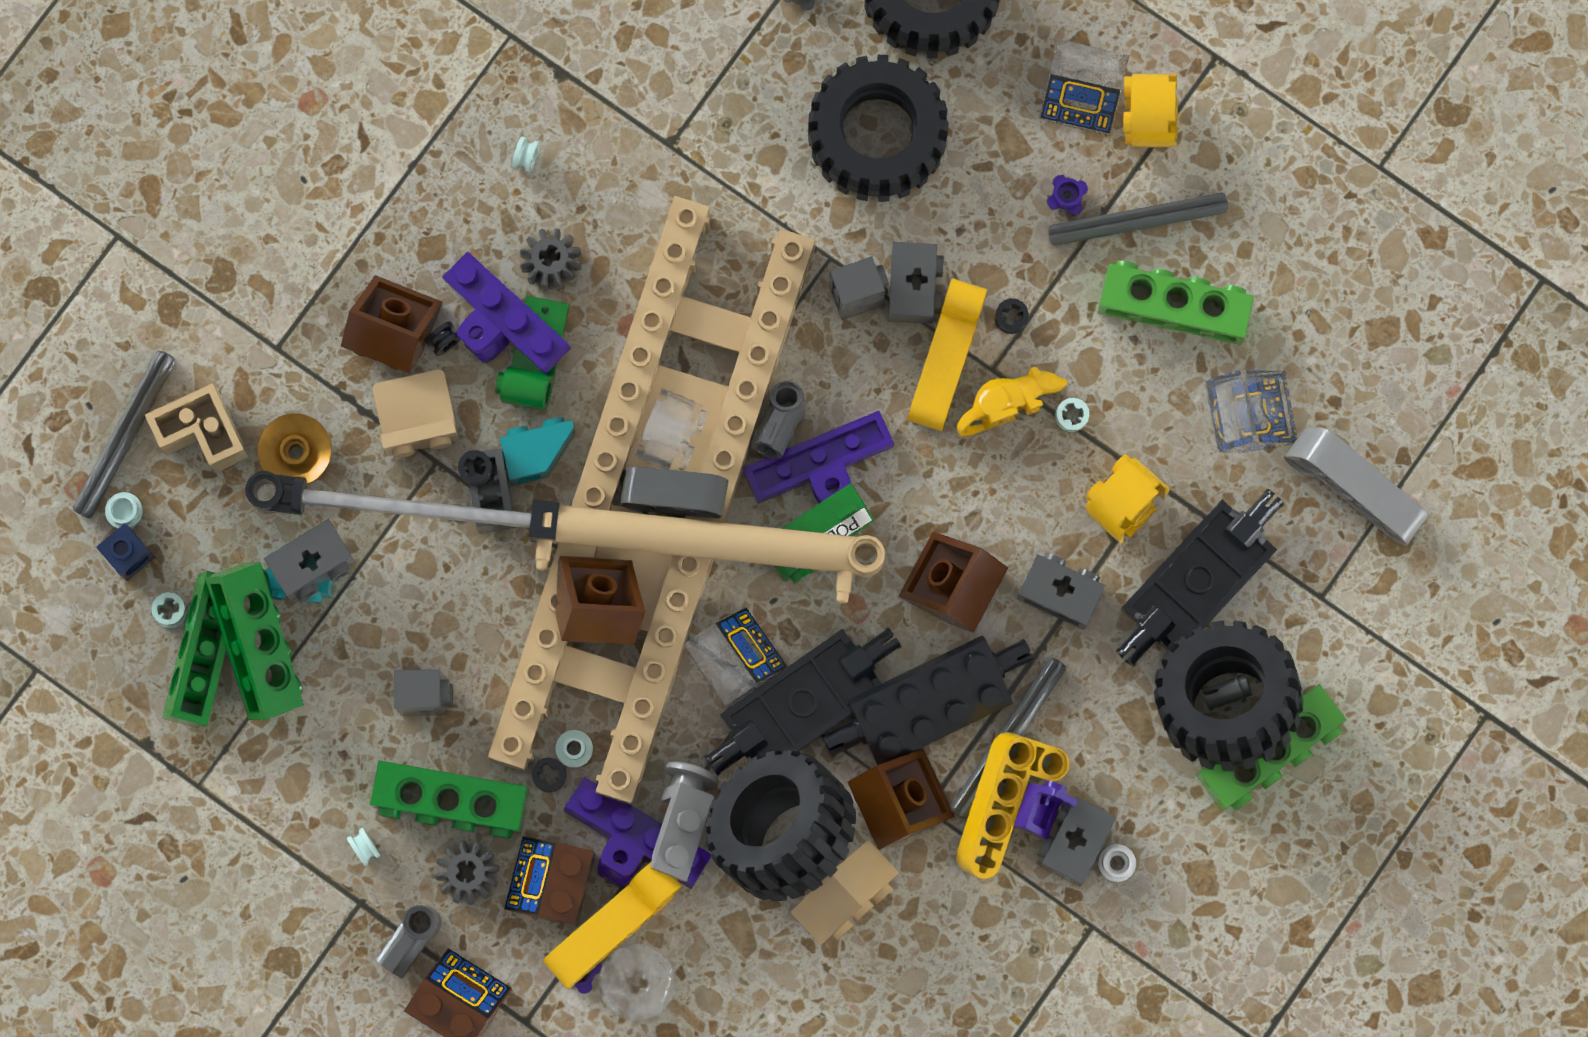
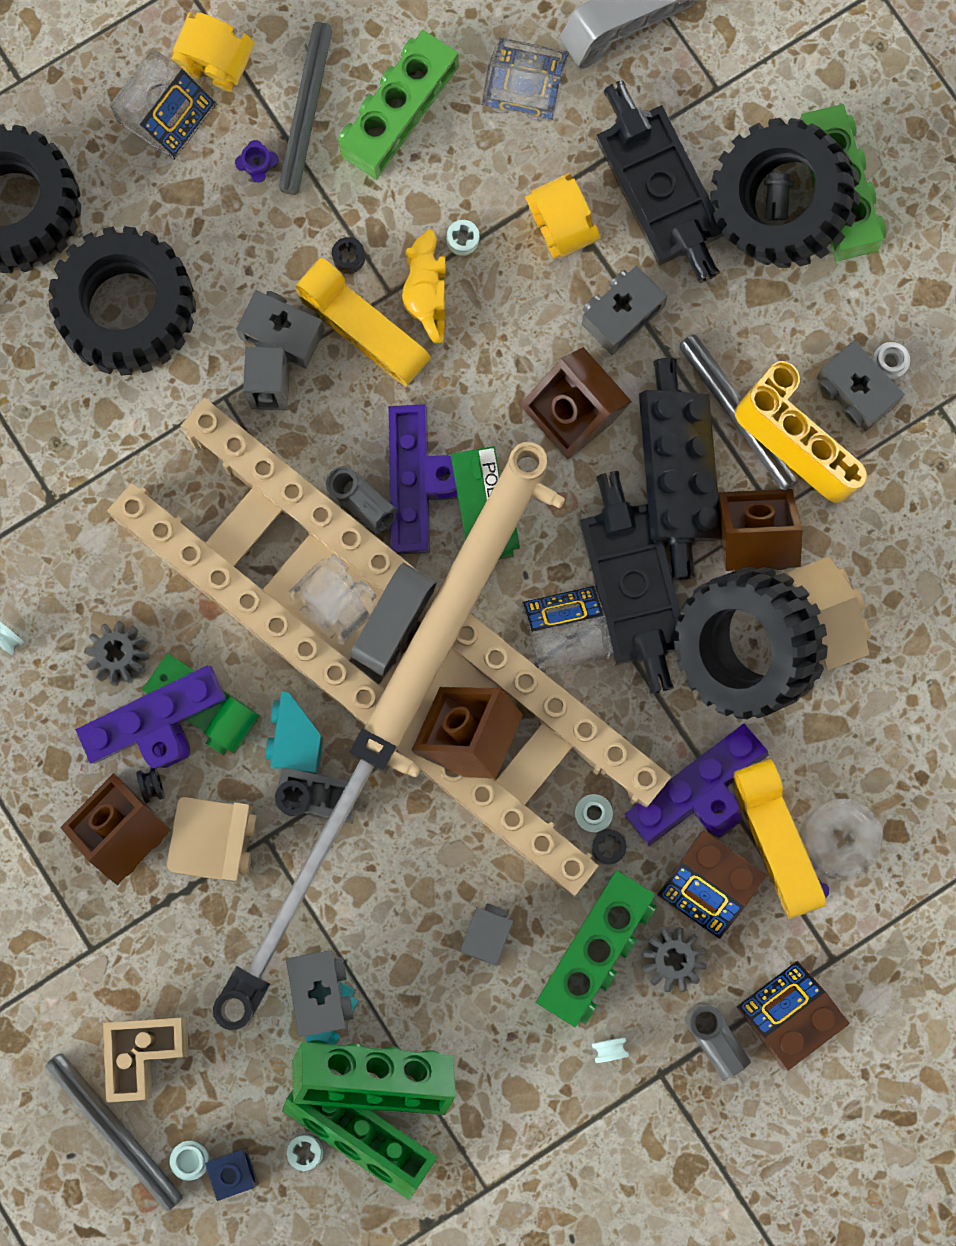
camera: 65 degrees left, 0 degrees up
(294, 431) = (179, 966): pearl gold dish -> none
(683, 819) = (707, 732): light grey piece -> none
(1041, 806) = (818, 403): dark purple bracket -> none

